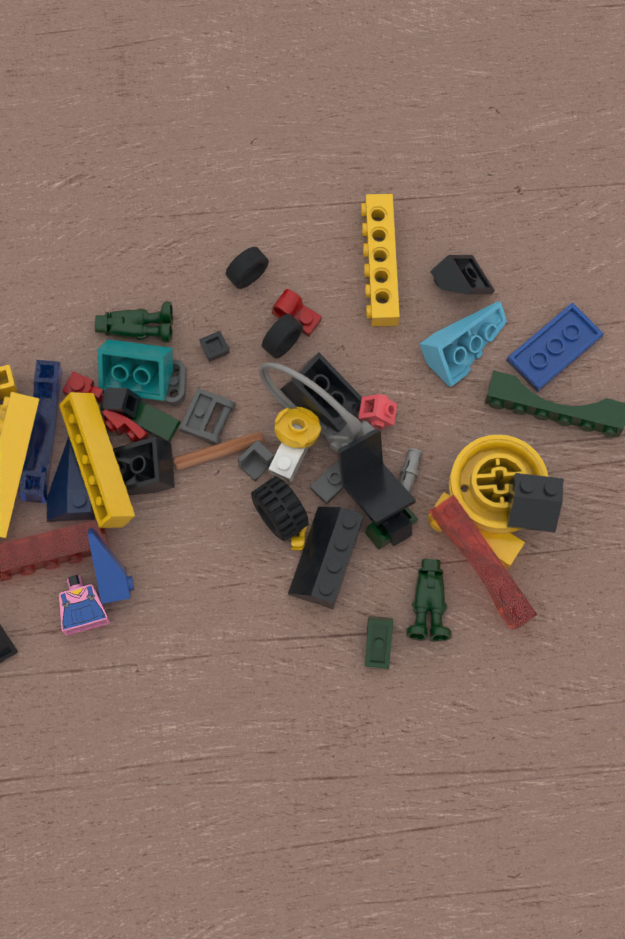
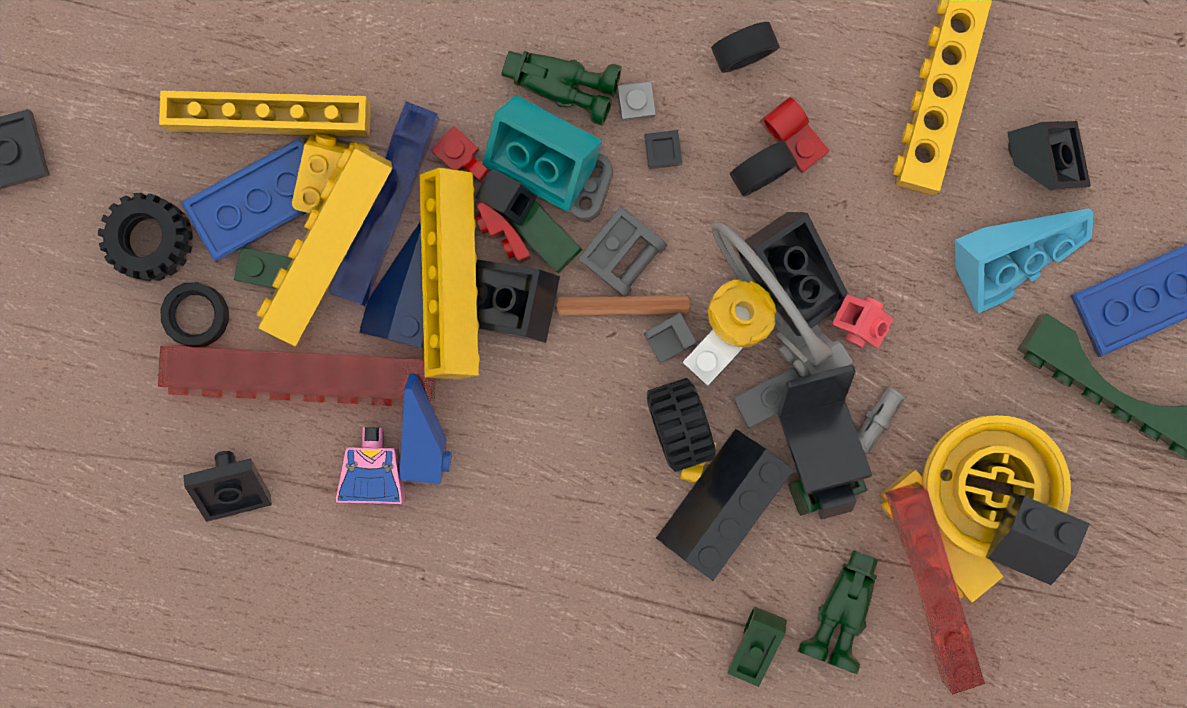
camera: 25 degrees right, 15 degrees up
(188, 323) = (636, 101): none -> light grey plate

